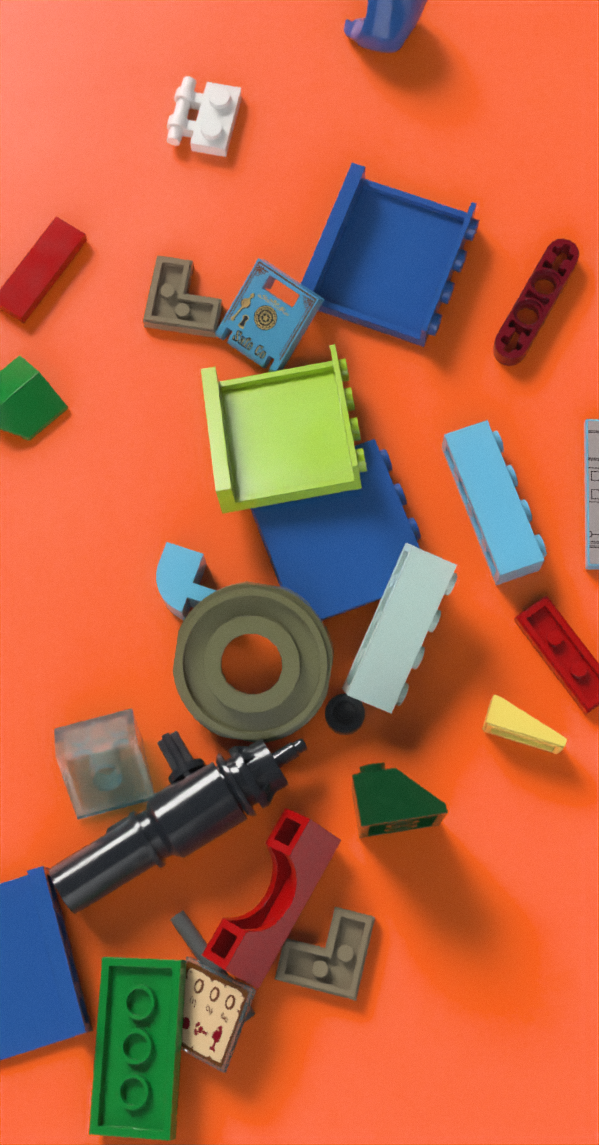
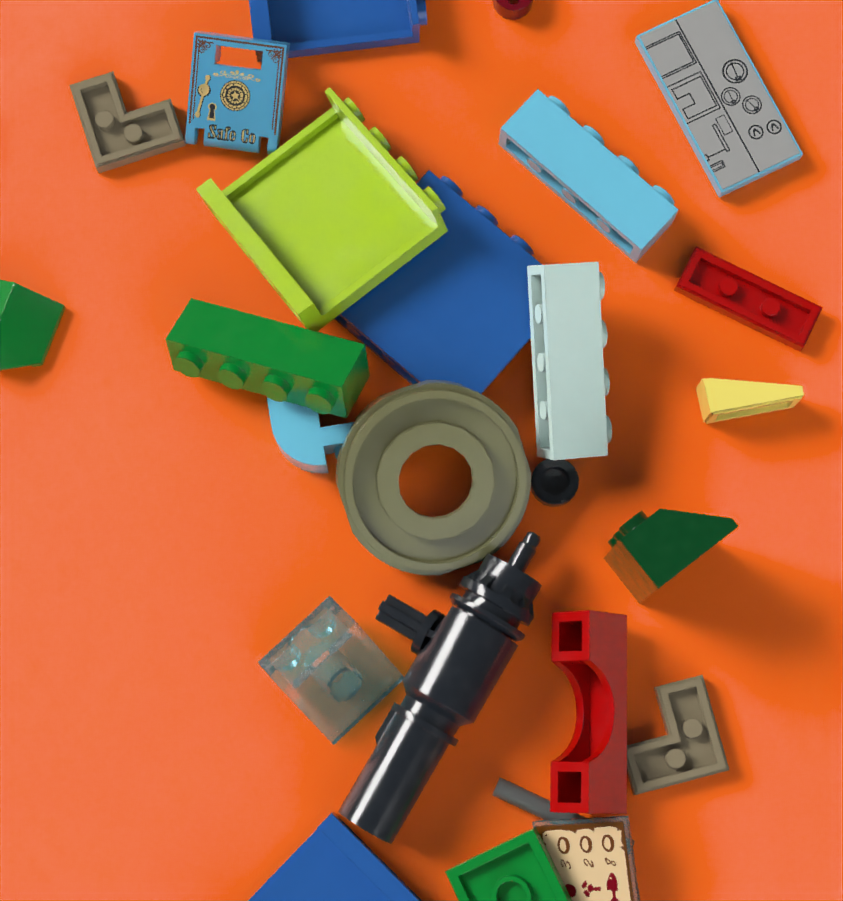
camera: 35 degrees left, 5 degrees up
(183, 514) = (268, 357): none -> green brick

